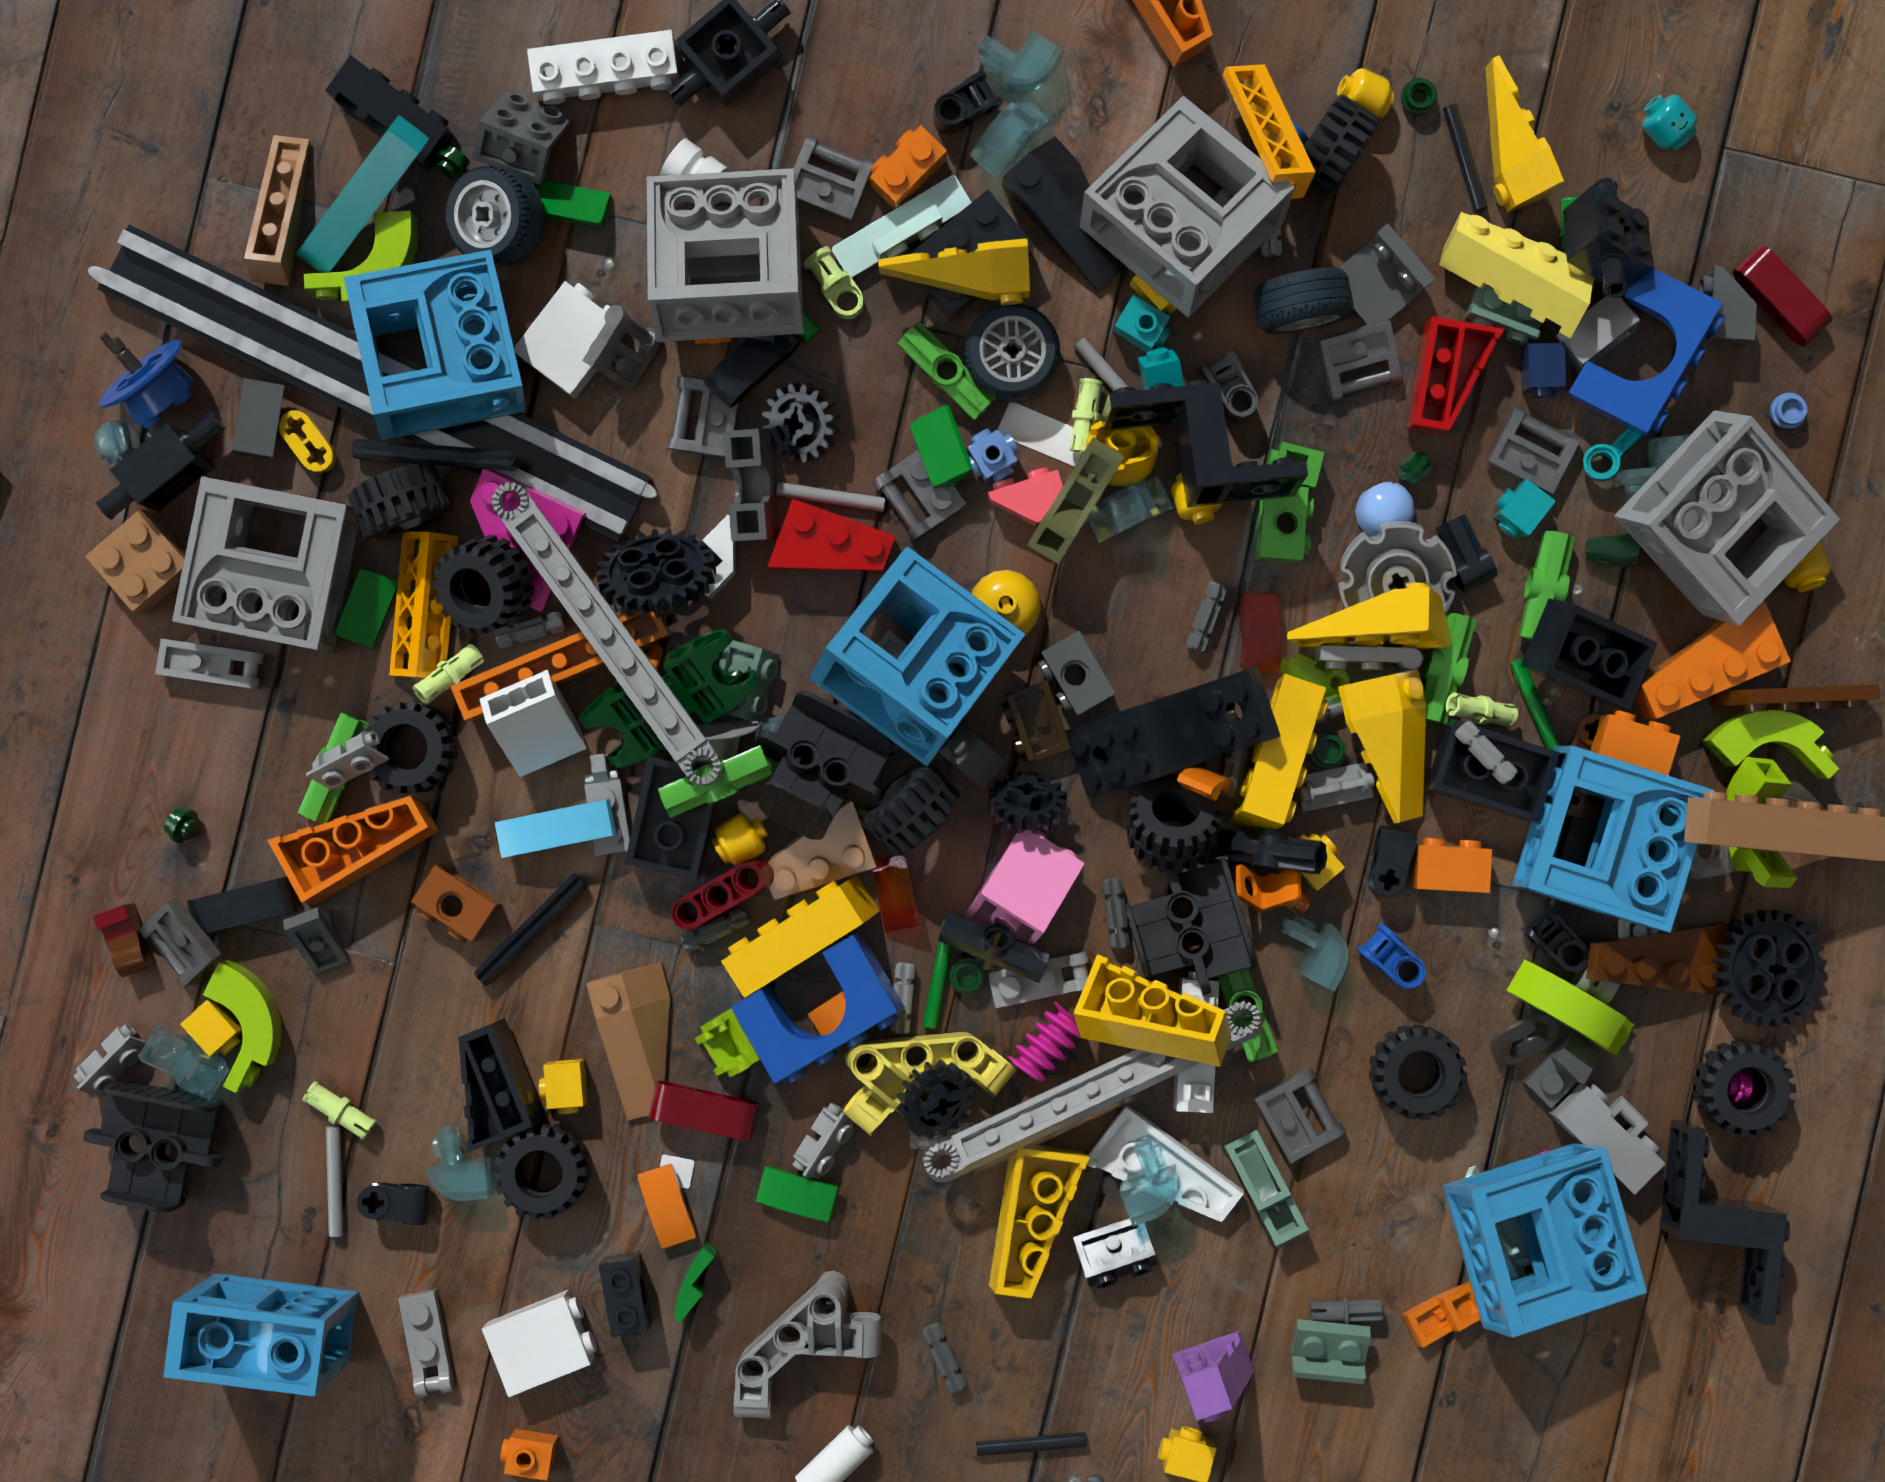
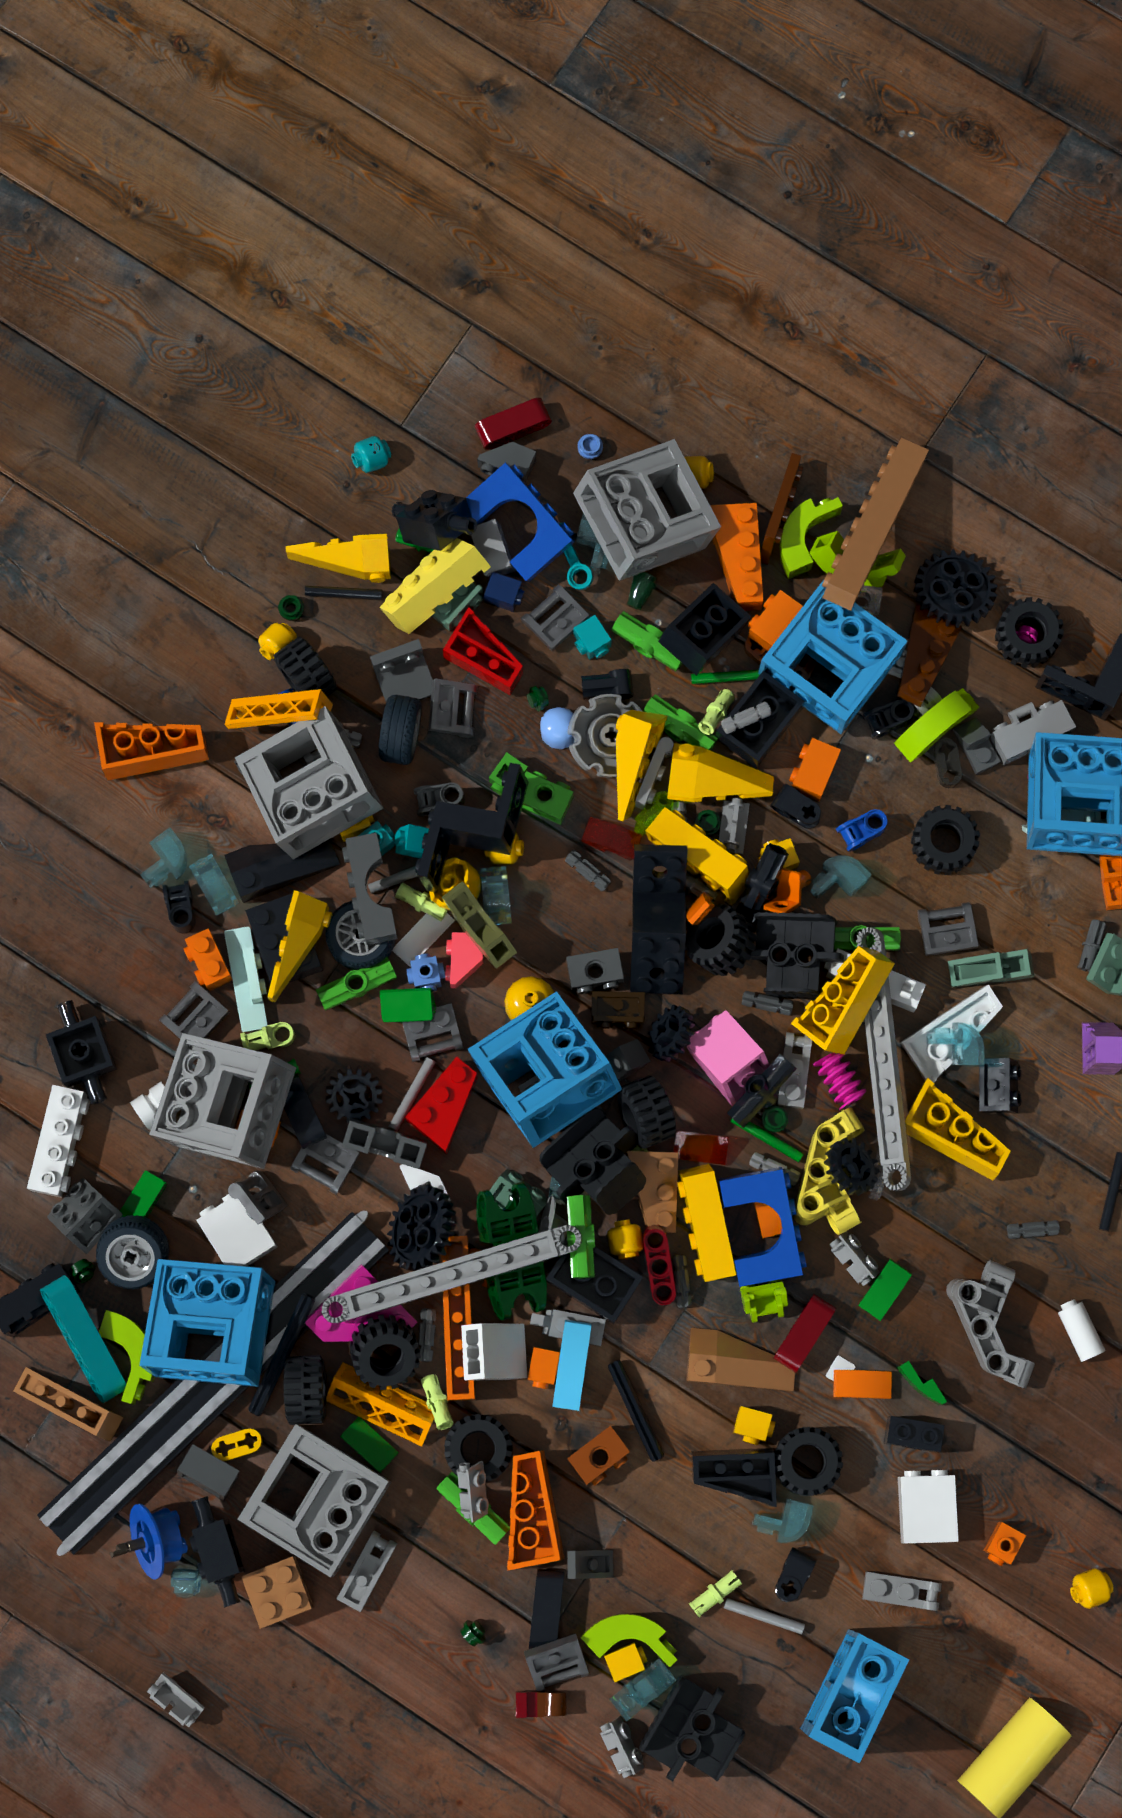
camera: 70 degrees left, 10 degrees down
(540, 793) = (543, 1368): none -> orange brick
(1111, 316) = (364, 857): none -> dark grey arch

